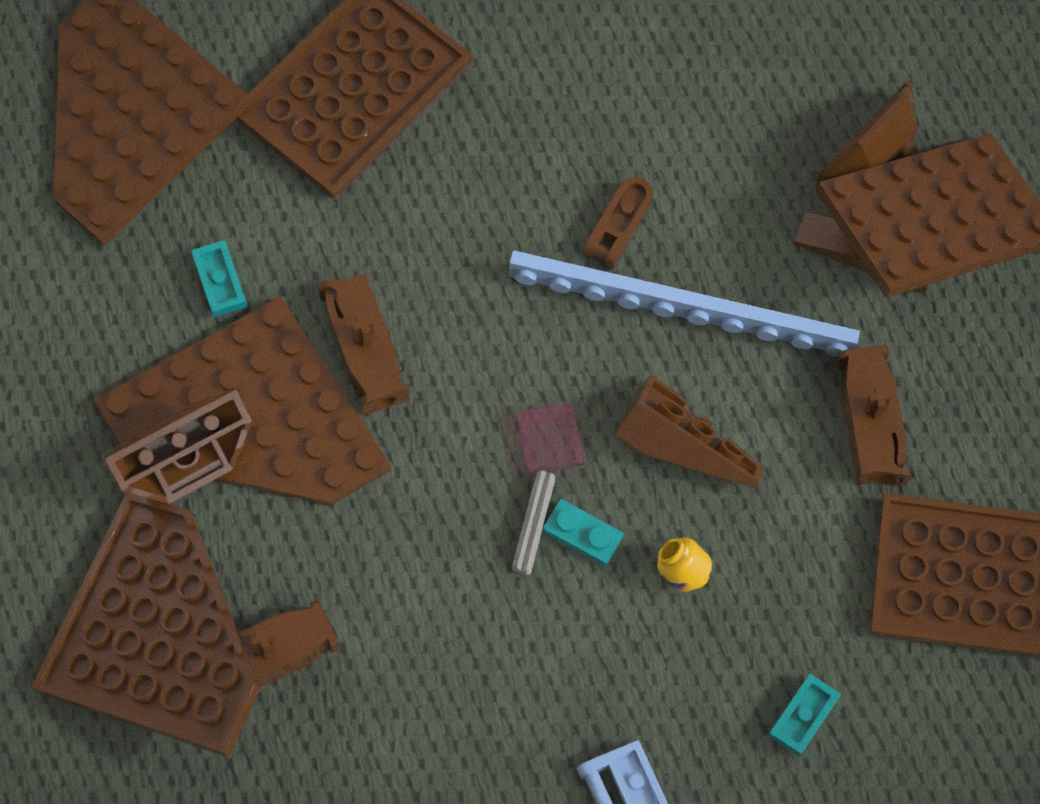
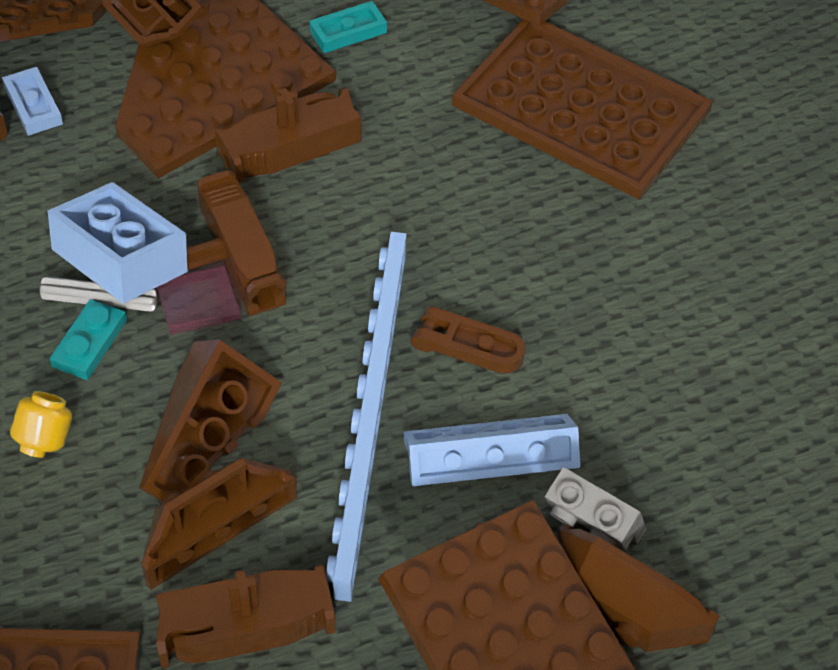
camera: 85 degrees right, 15 degrees down
(283, 579) = (32, 101): none -> light blue plate
(499, 491) = (118, 242): none -> light blue brick
(500, 394) = (238, 242): none -> reddish brown piece
(736, 215) = (492, 449): none -> light blue fence
(782, 439) = (212, 514): none -> reddish brown wedge
(813, 146) = (597, 510): none -> light grey plate

